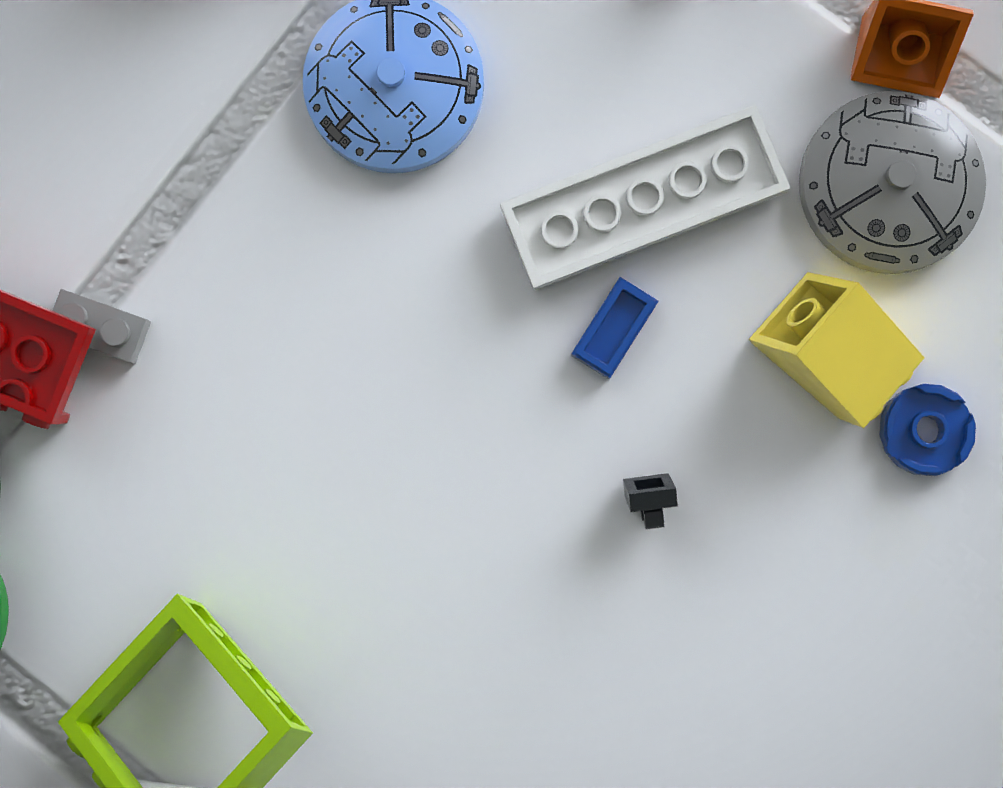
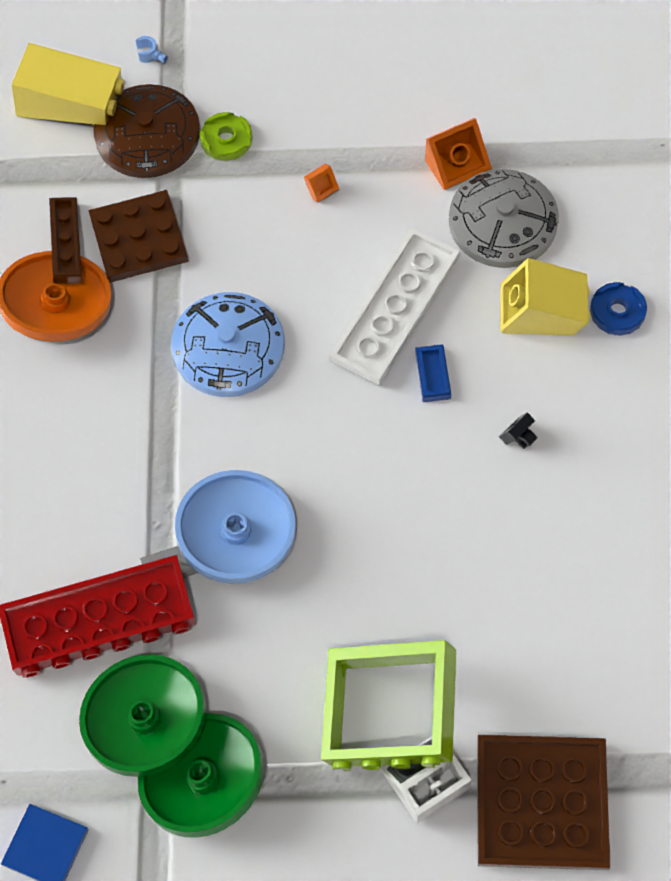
camera: 40 degrees left, 20 degrees down
(195, 343) = (235, 526): none -> light blue dish

